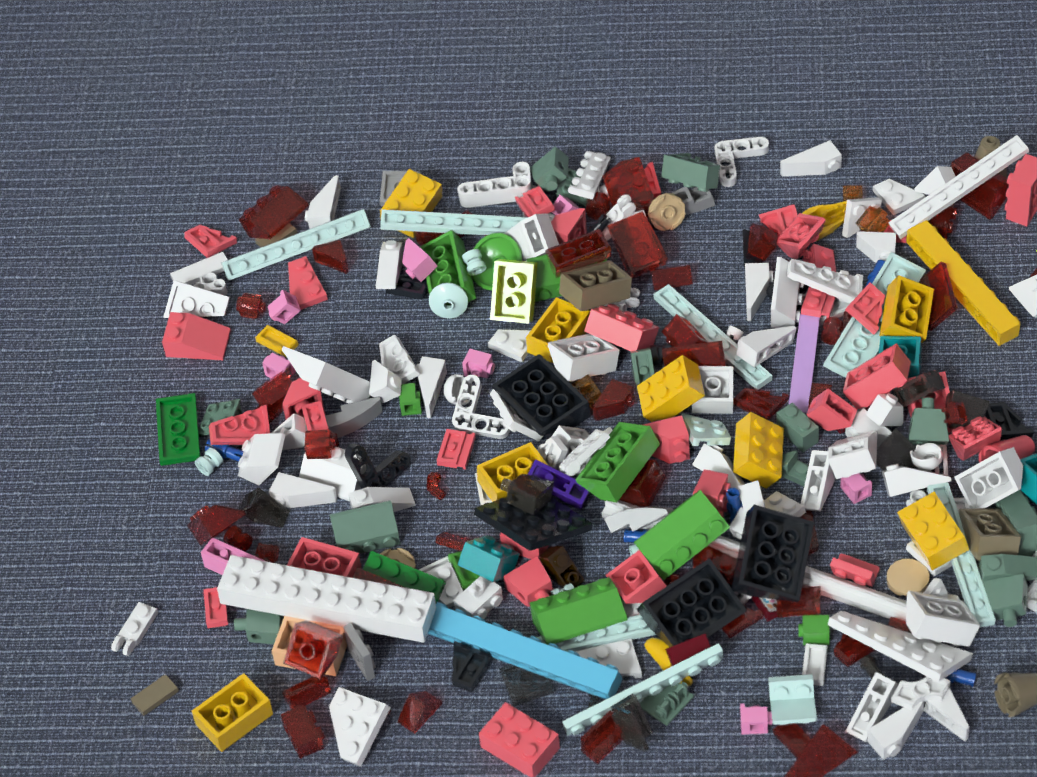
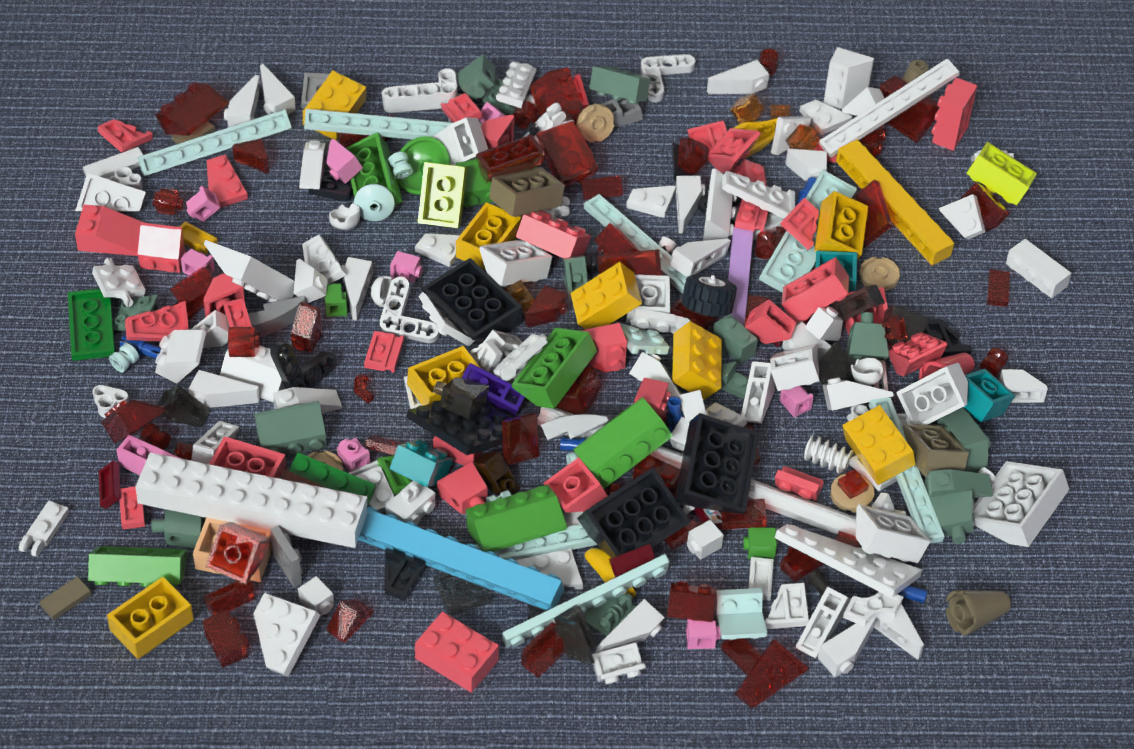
camera: 10 degrees left, 0 degrees up
(194, 500) = (109, 397): none -> white piece
(195, 585) = (109, 484): none -> dark red tile
(203, 386) = (118, 281): none -> white plate
(220, 662) = (136, 565): none -> slope
(243, 352) = (161, 247): none -> slope
(285, 546) = (207, 445): none -> white slope
(354, 193) = (275, 93): none -> white slope
(381, 428) = (306, 327): none -> clear red slope
(387, 690) = (316, 596): none -> white brick
(420, 316) = (344, 217): none -> white hair
(424, 551) = (353, 454): none -> bright pink brick
(583, 532) = (520, 438): none -> clear red tile
(672, 749) = (617, 663): none -> white bracket
(688, 716) = (634, 628): none -> white slope
(721, 288) = (651, 200): none -> white wing
(721, 411) = (657, 321): none -> white hinge
(744, 689) = (691, 601): none -> clear red slope
(760, 627) = (704, 539): none -> white brick
(772, 384) = (709, 295): none -> black wheel
(818, 191) = (747, 108): none -> clear orange brick
(840, 693) = (788, 608): none -> white wing
(842, 140) = (769, 60): none -> clear red wheel
(884, 542) = (827, 455): none -> white piece
(907, 569) = (852, 484): none -> clear red tile
(918, 155) = (847, 77): none -> white slope
(945, 356) = (880, 272): none -> tan tile

